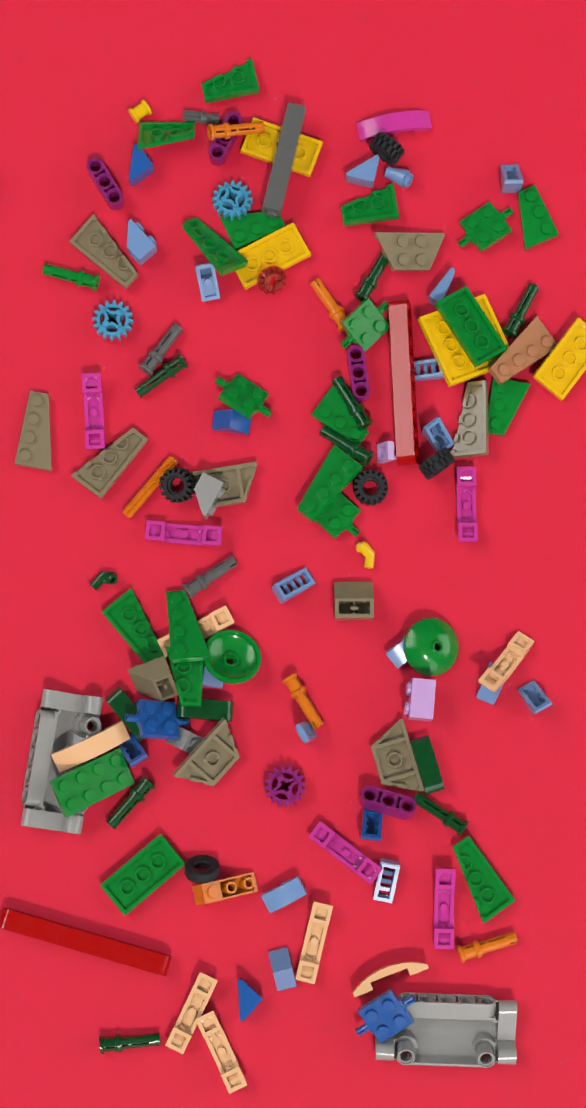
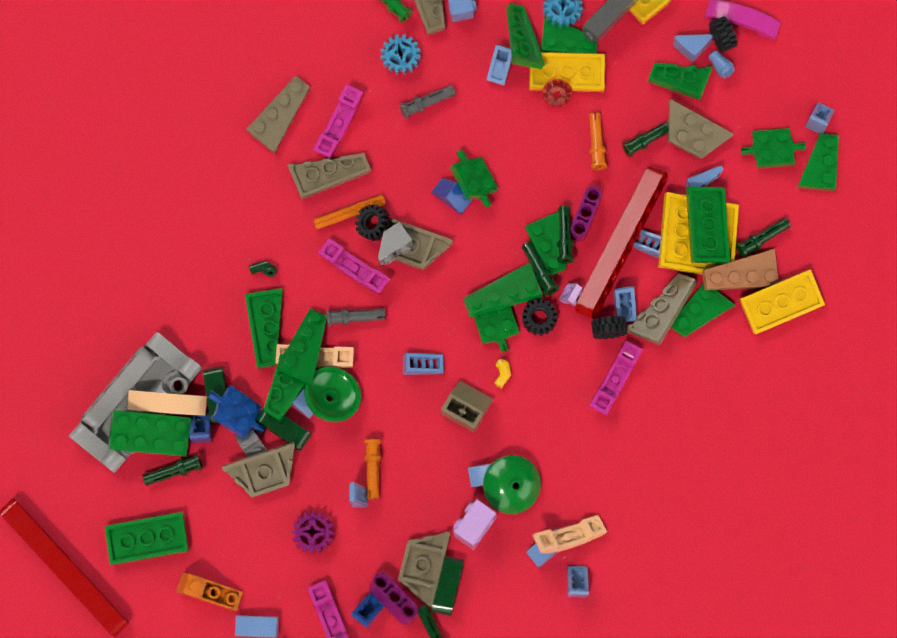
camera: 35 degrees right, 5 degrees down
(154, 679) = (254, 375): dark tan slope -> none
(167, 368) = (424, 123): dark green pin -> none
(201, 876) = (200, 555): black tyre -> none
(365, 324) = (616, 174): green plate -> none

